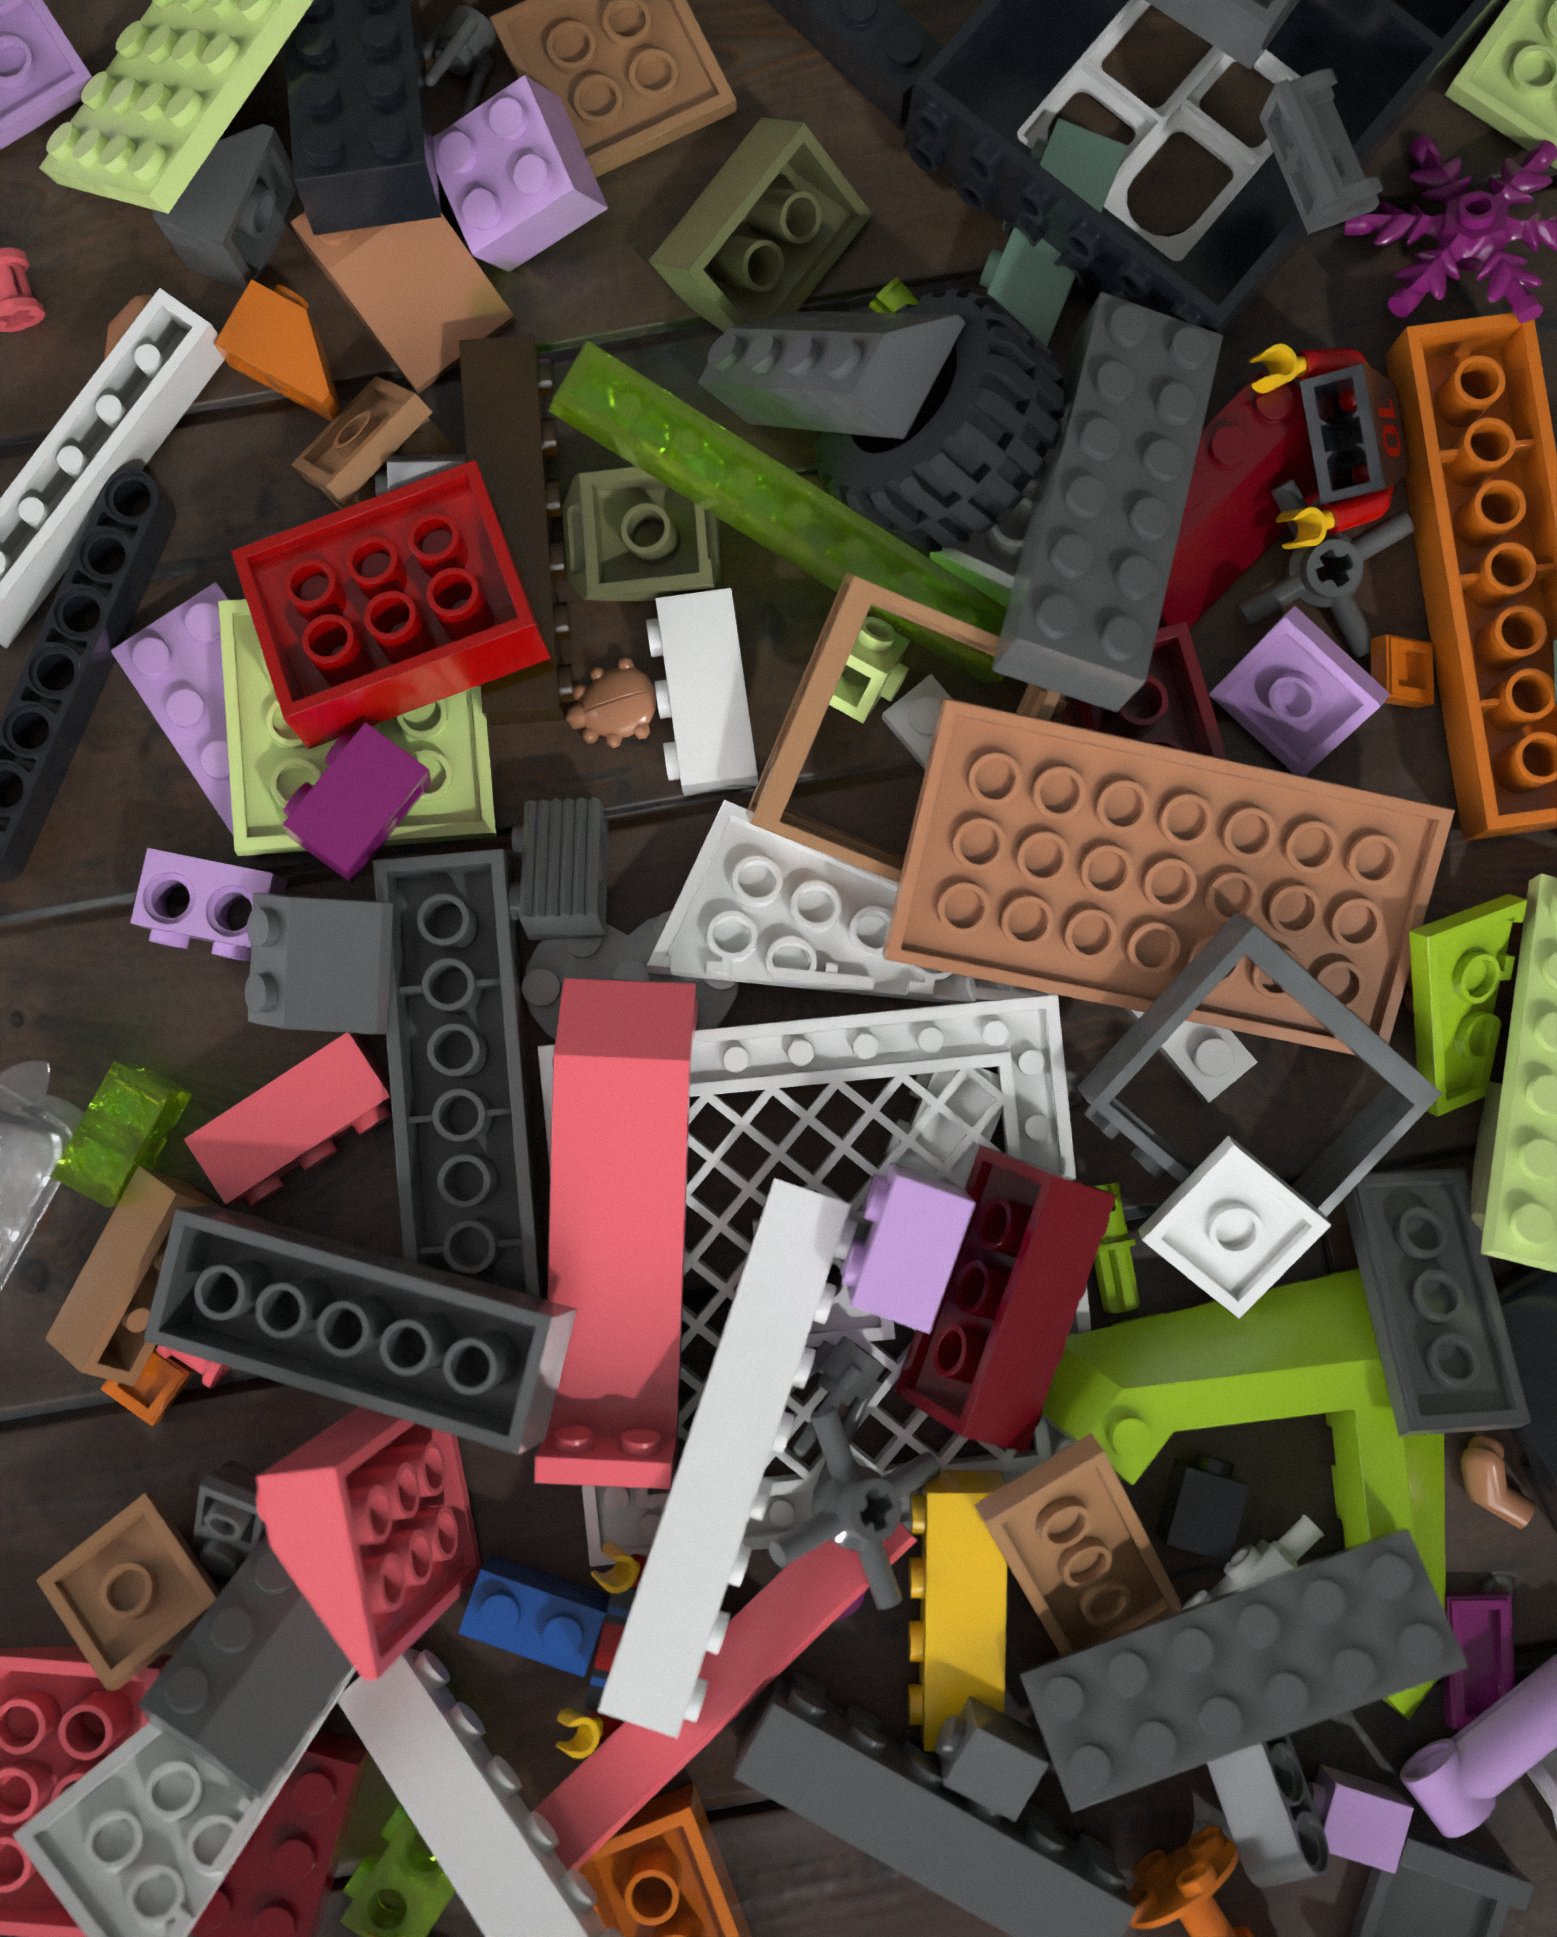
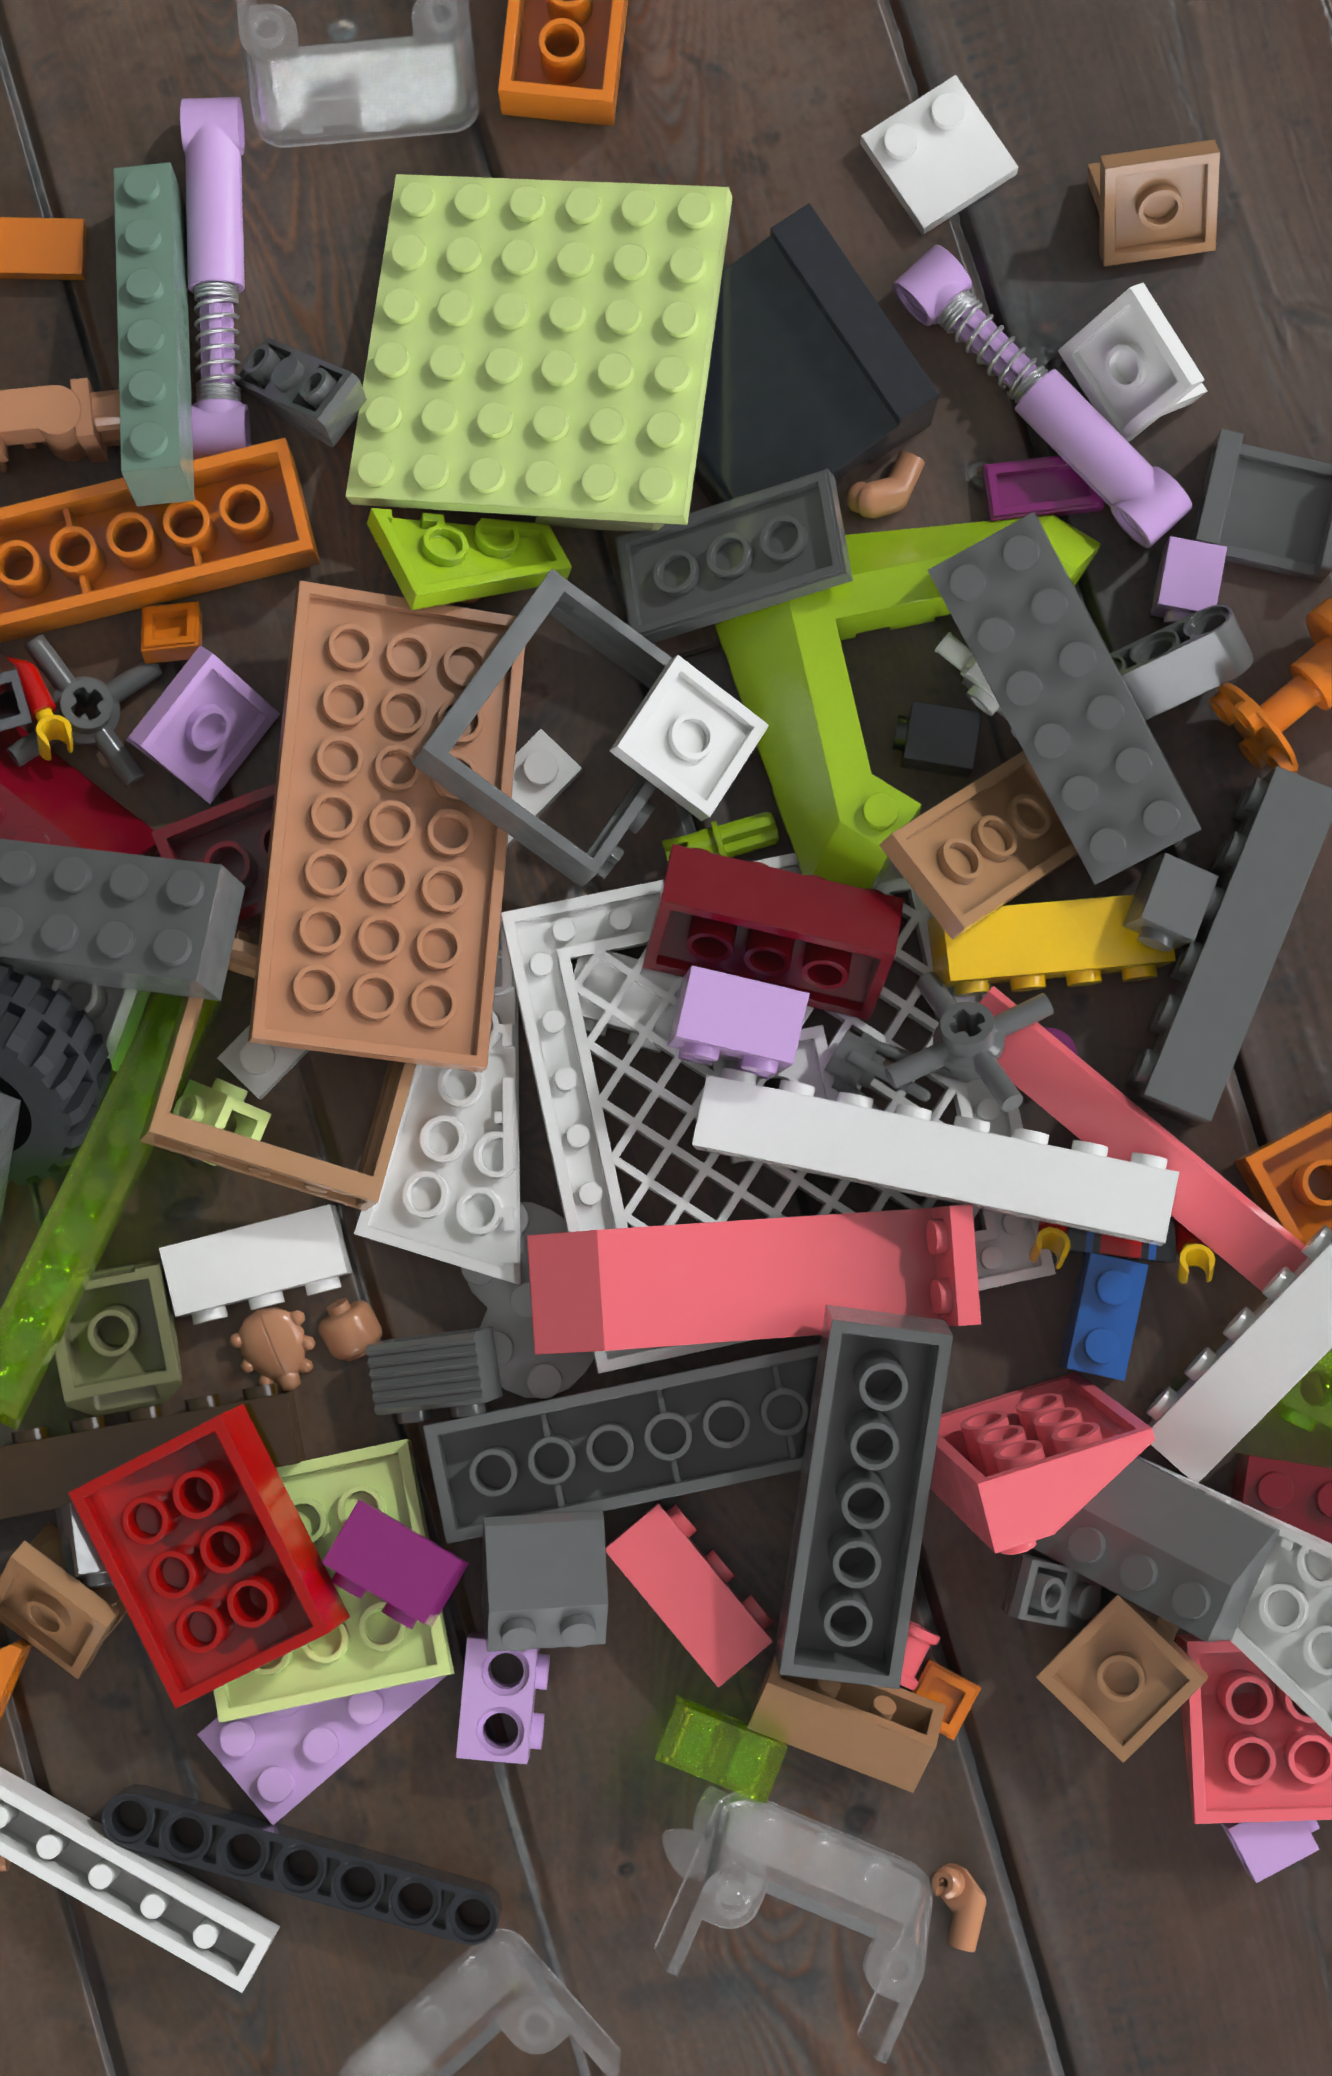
camera: 95 degrees left, 0 degrees up
(624, 786) = (349, 1329): none -> nougat piece

